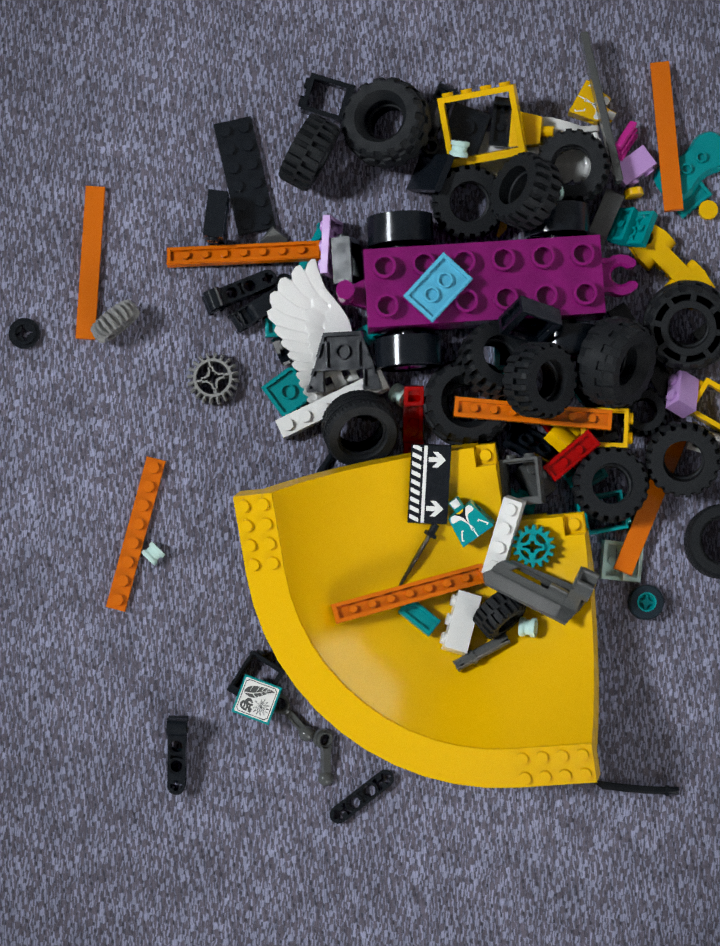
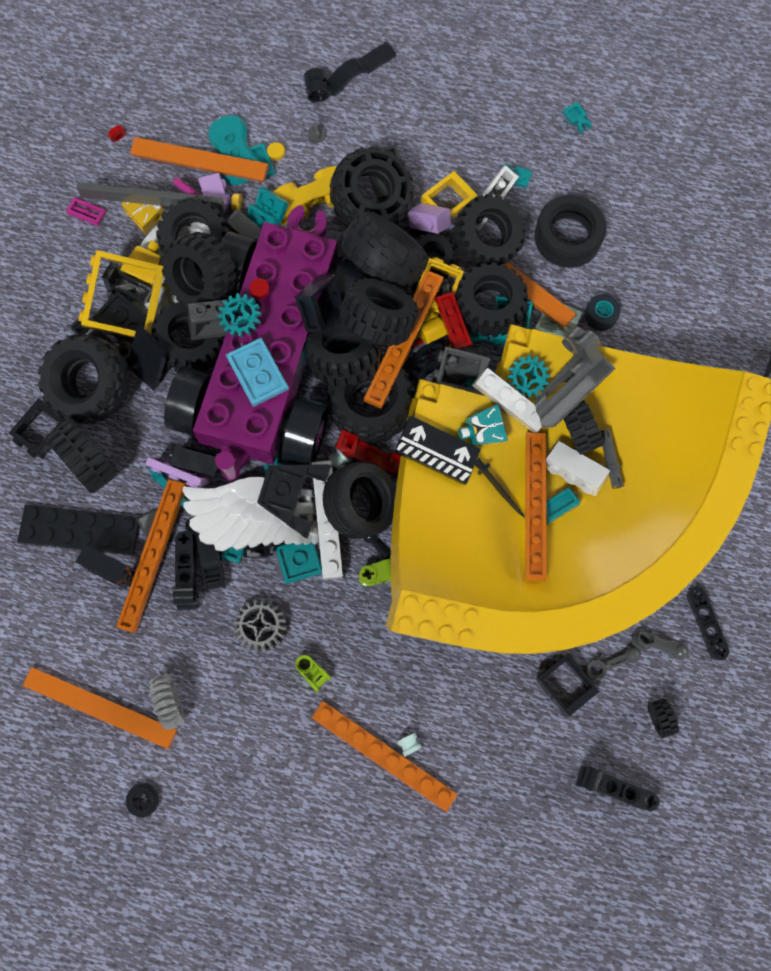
camera: 70 degrees left, 10 degrees down
(186, 443) = (313, 673): none -> lime piece
(255, 776) = (663, 718): none -> black tyre
(256, 699) = (588, 689): tile -> none
(302, 469) = (379, 572): none -> lime piece
(459, 148) = (135, 320): light aqua wheel -> none
(483, 225) = (200, 315): none -> dark grey window
(496, 250) = (240, 308): none -> teal gear
(522, 258) = (259, 288): none -> red tile
(528, 627) = (602, 408): light aqua wheel -> none
(568, 62) = (99, 218): none -> dark pink tile
(667, 41) = (116, 133): none -> red tile

